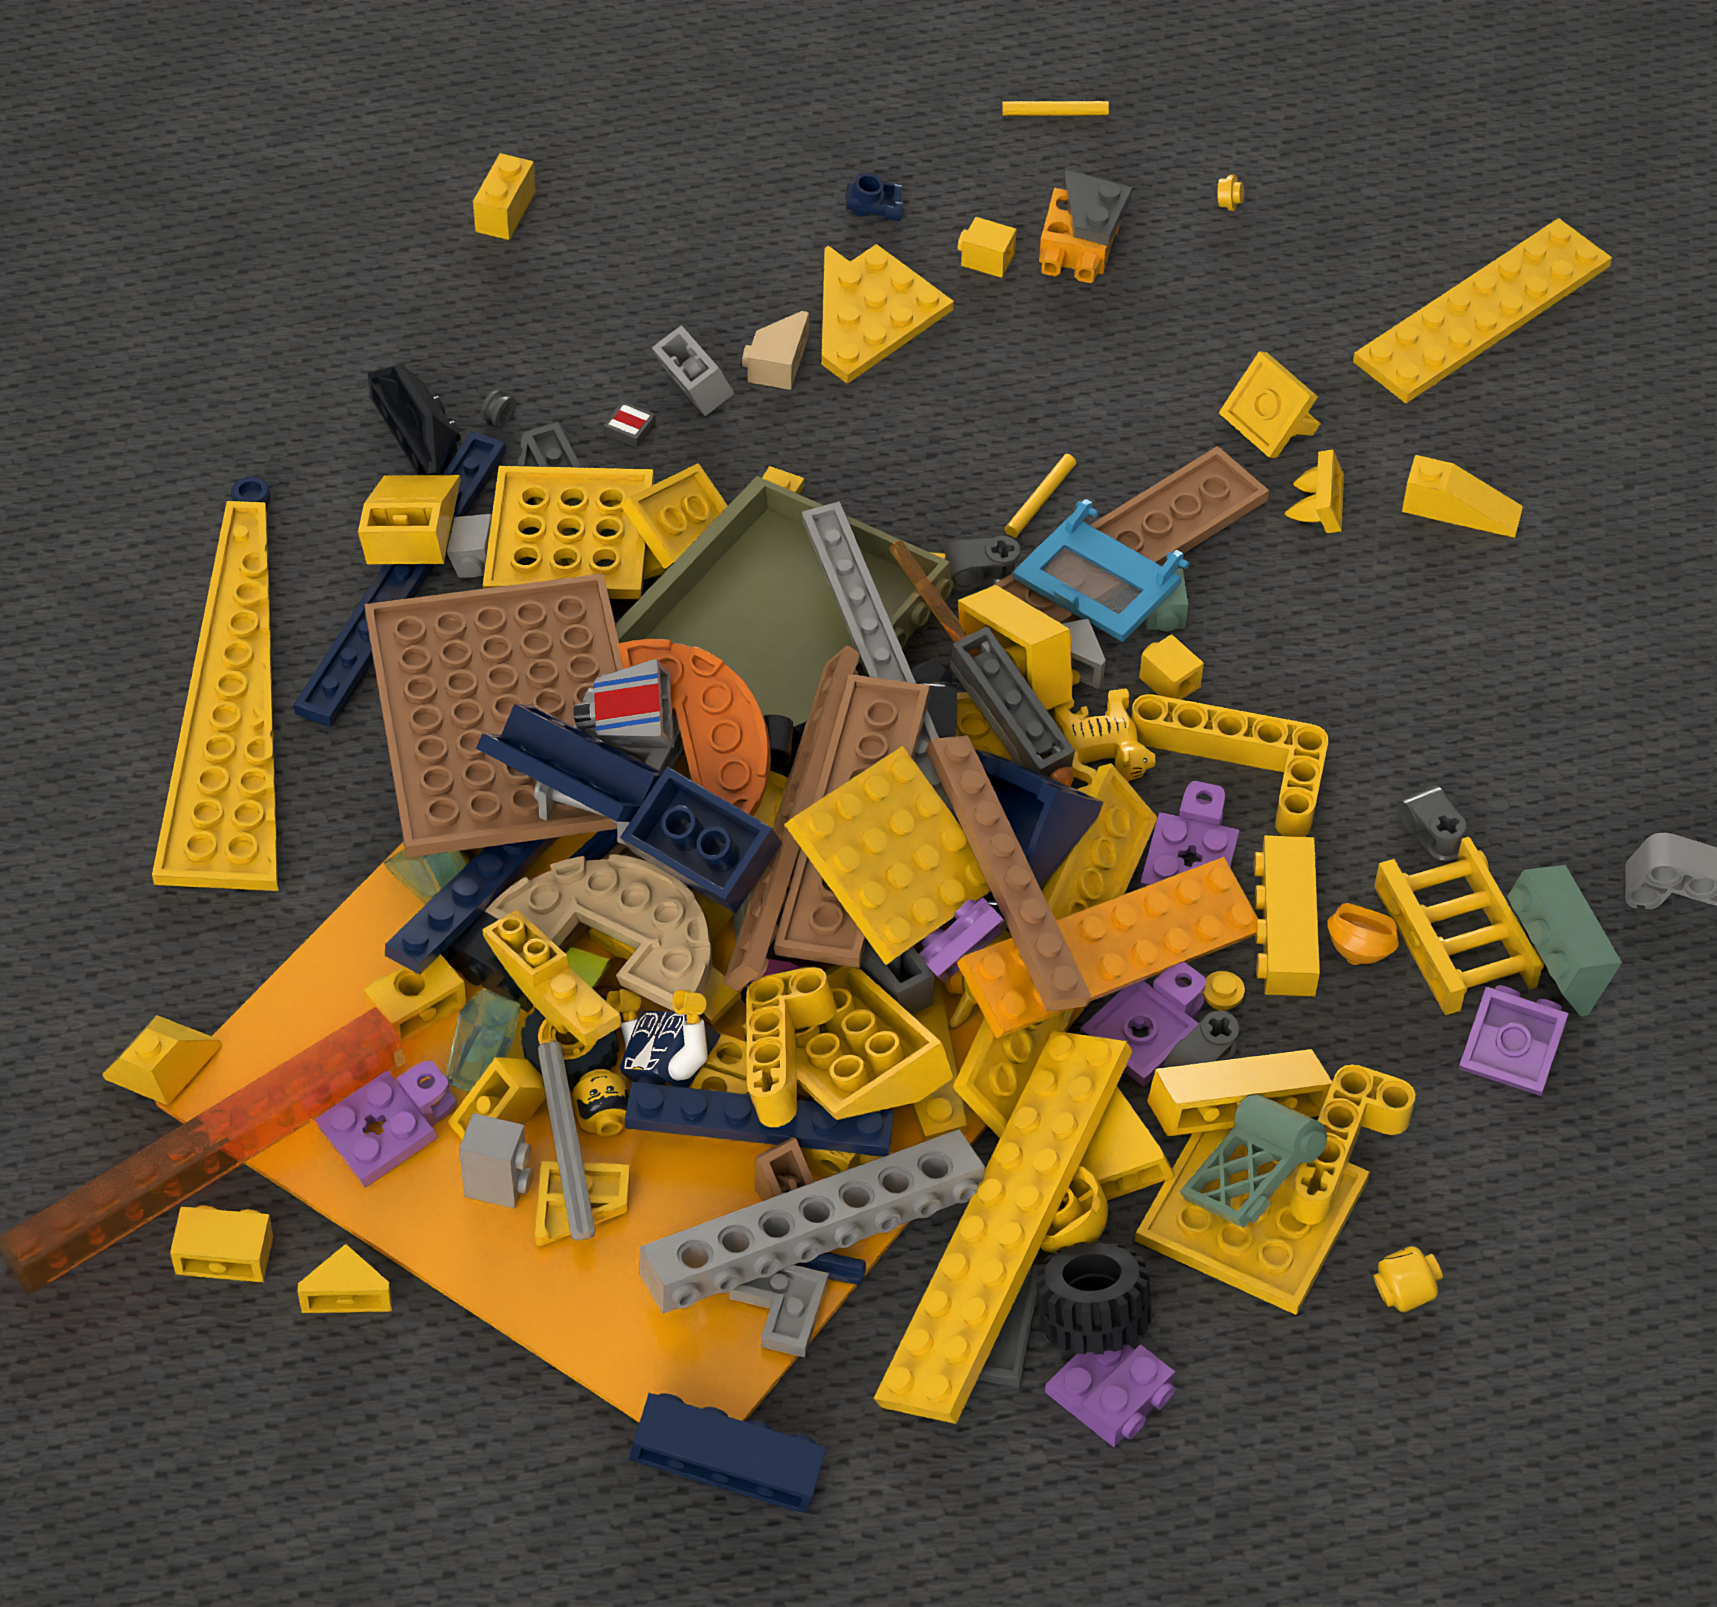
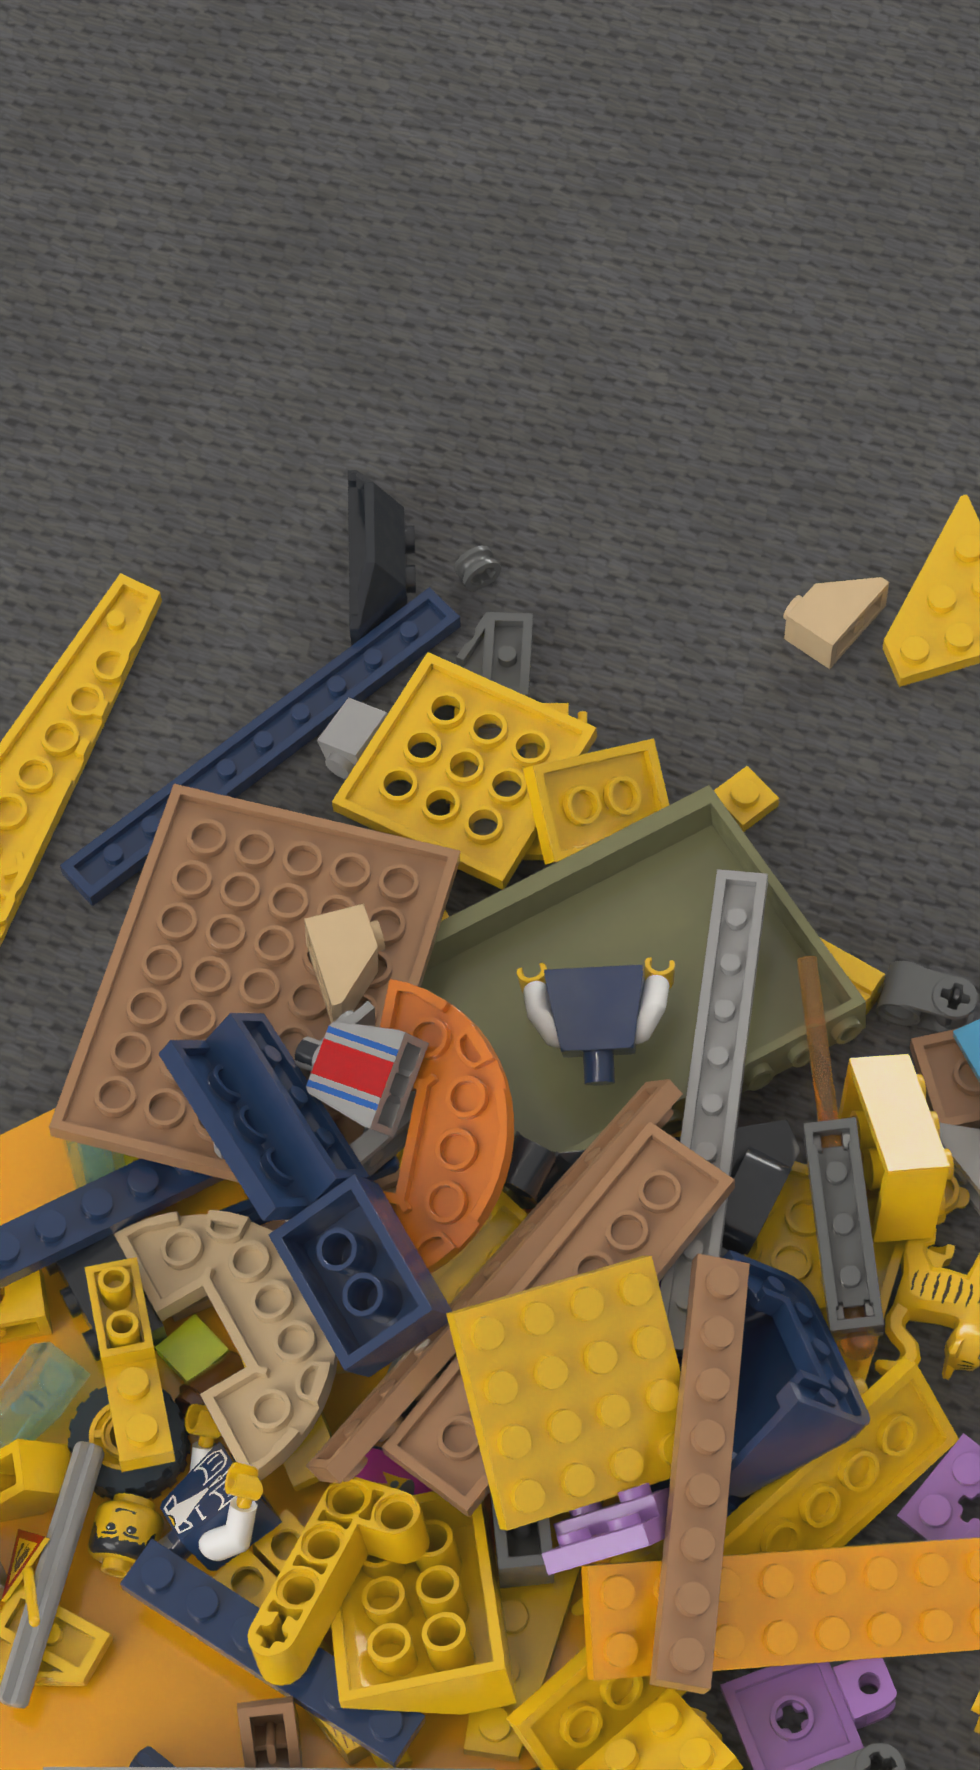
camera: 30 degrees right, 10 degrees up
(251, 490) = (157, 569): dark blue tile -> none
(409, 519) = (295, 679): yellow slope -> none
(504, 196) = (622, 291): yellow brick -> none
(539, 1135) = (25, 1552): none -> yellow piece
(560, 659) = (343, 955): none -> tan slope
(629, 424) = (617, 644): tile -> none
(693, 370) = (717, 607): light grey brick -> none
(763, 632) = (597, 1011): none -> dark blue torso
(1223, 990) = (922, 1706): yellow plate -> none

